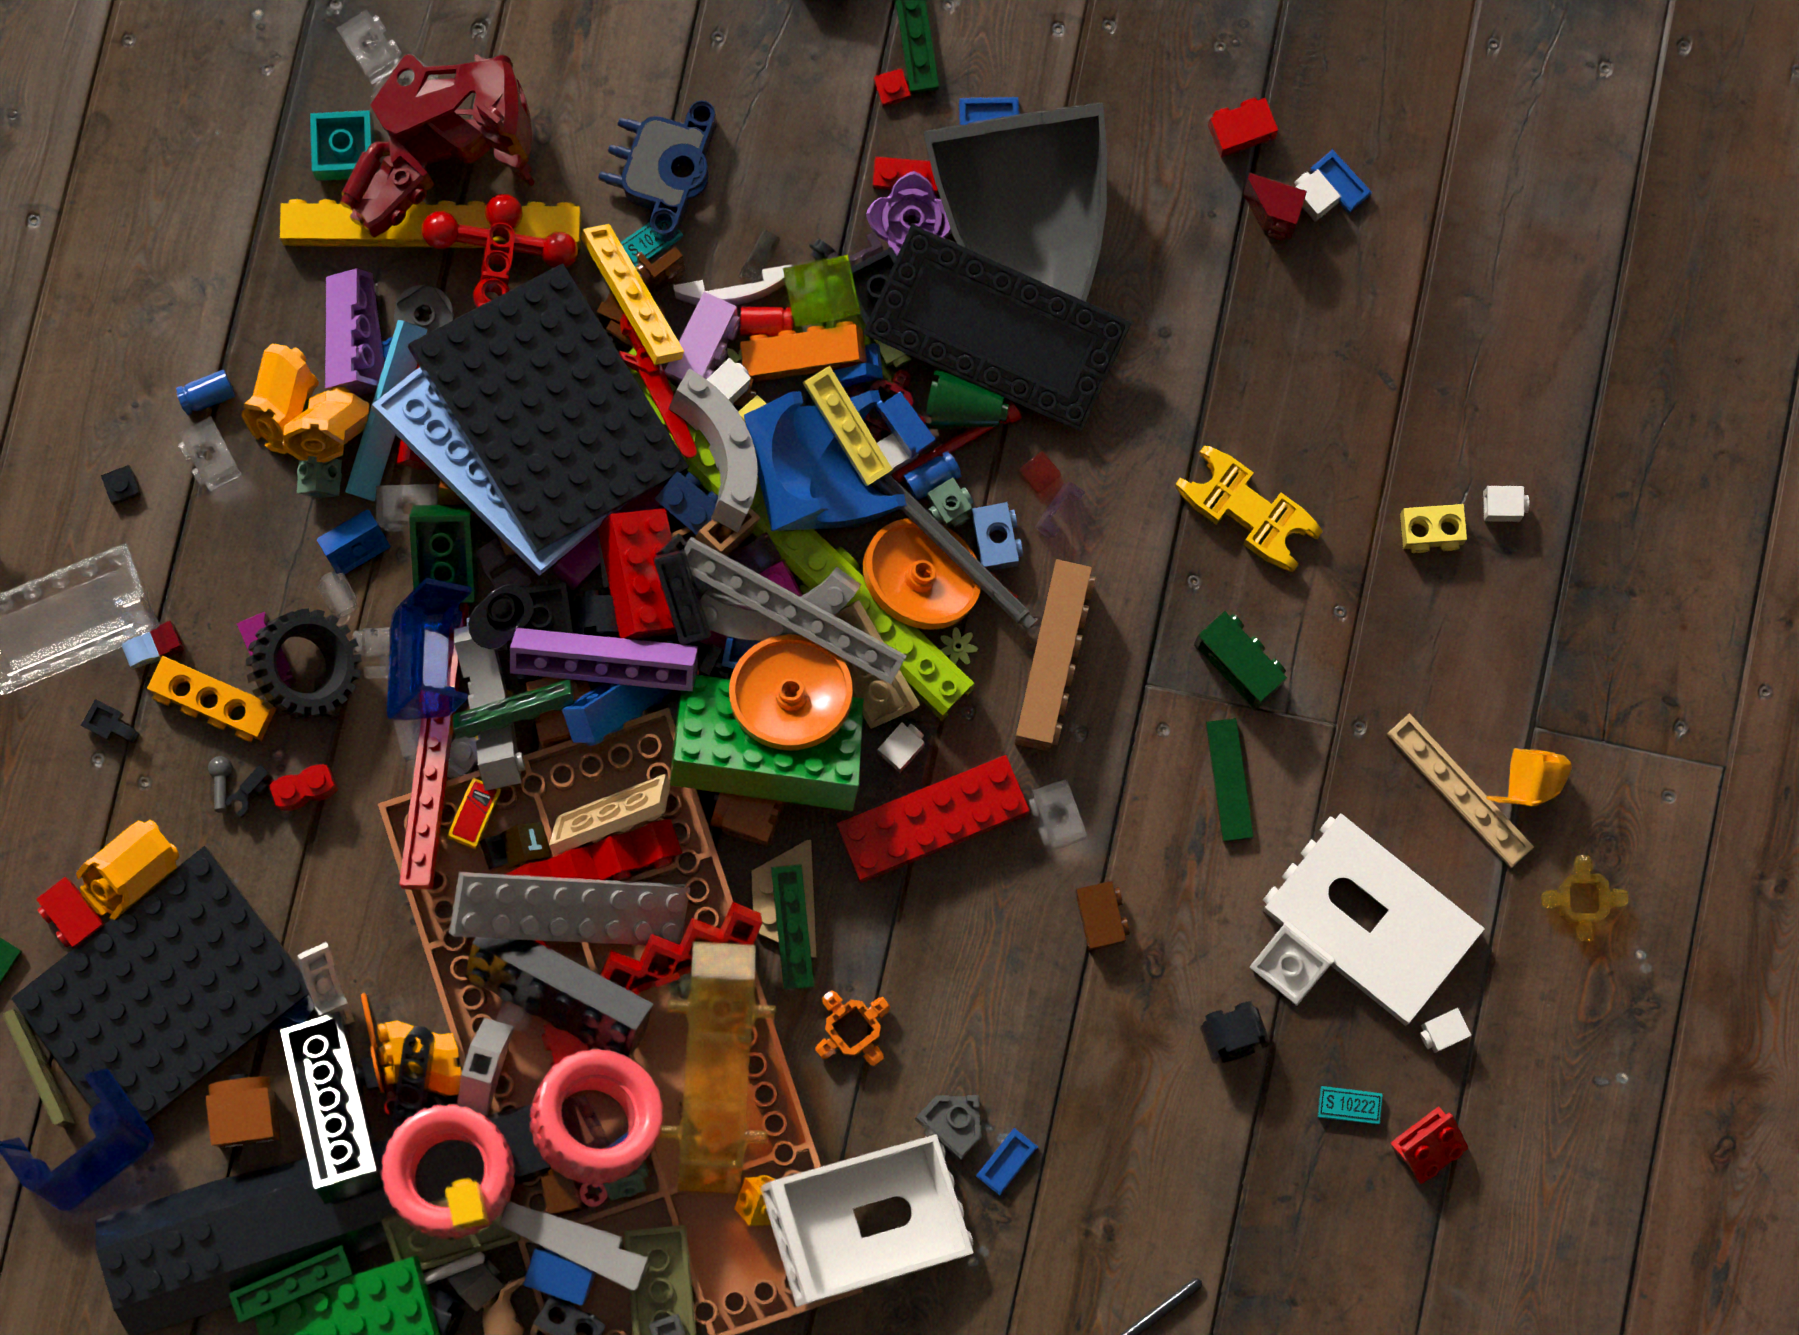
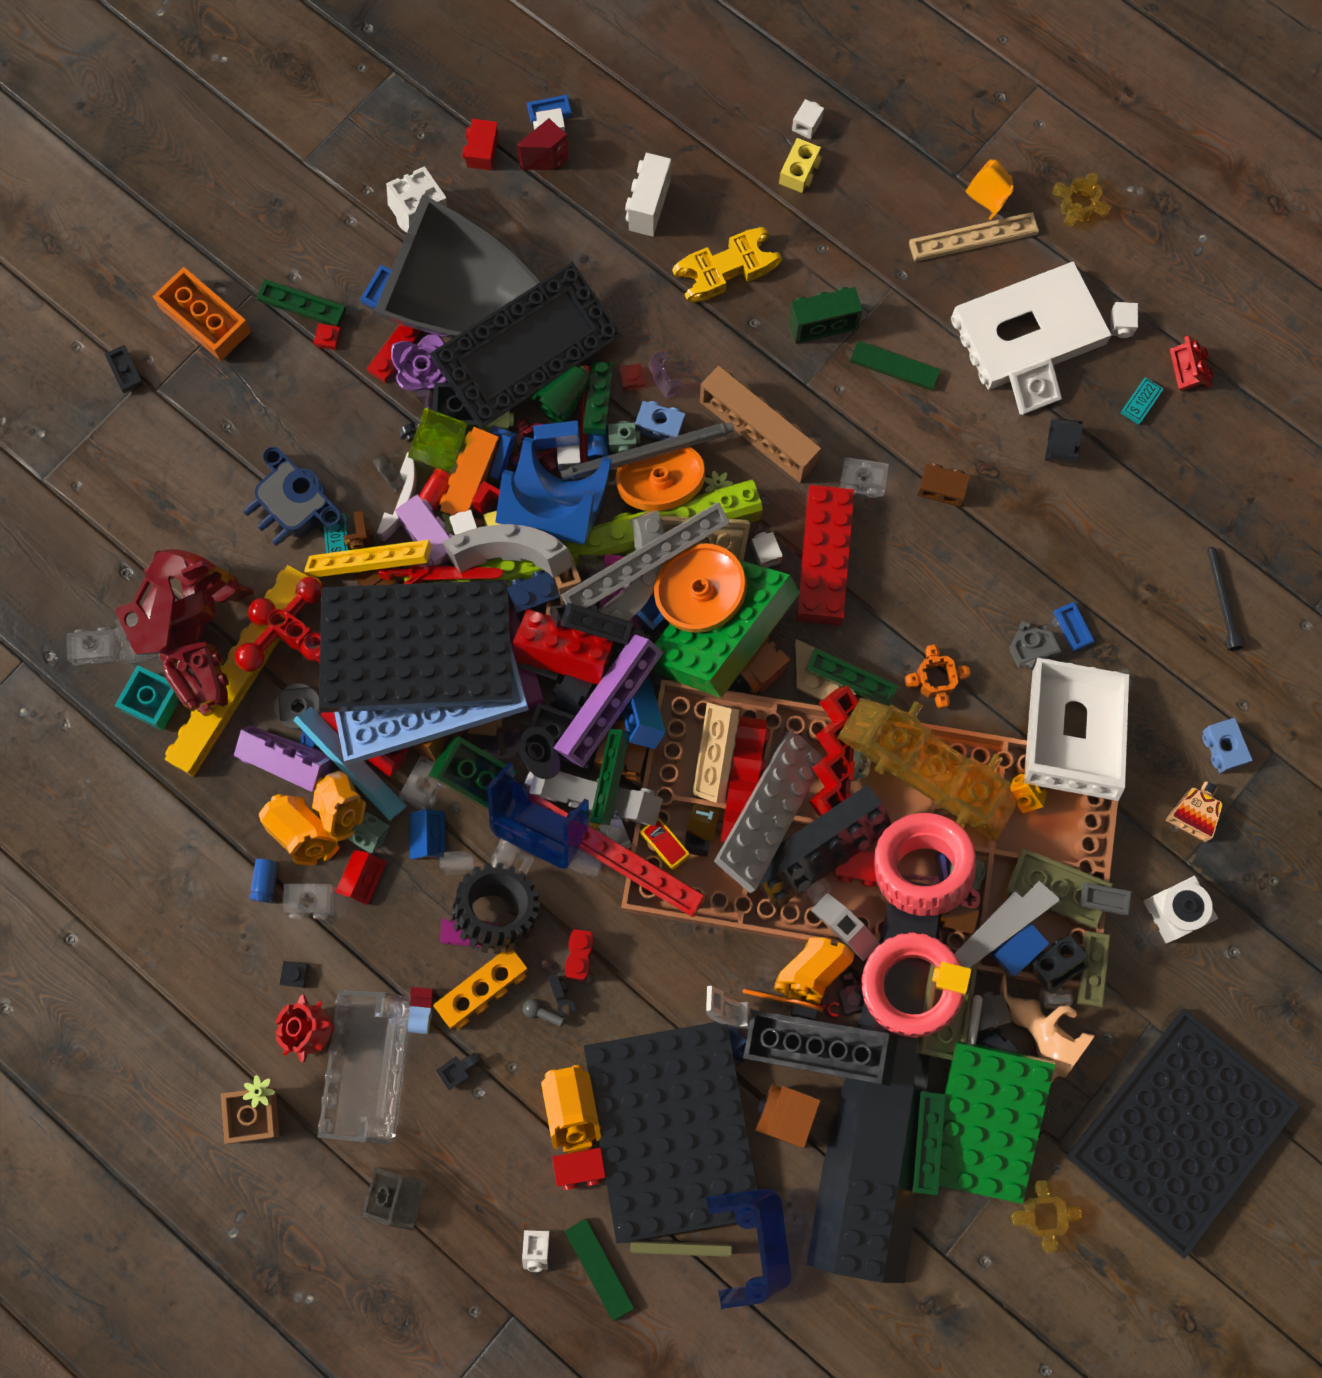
camera: 60 degrees left, 5 degrees down
(63, 529) = (303, 1028): none -> red brick
(266, 496) = (361, 876): none -> red panel
(410, 1079) = (830, 980): black beam -> none
(779, 384) = (485, 498): none -> red panel
(847, 426) = (539, 466): light yellow plate -> none
(984, 447) = (598, 398): none -> dark green plate
(1121, 91) = (406, 193): none -> white piece
(1283, 364) = (648, 194): none -> white brick

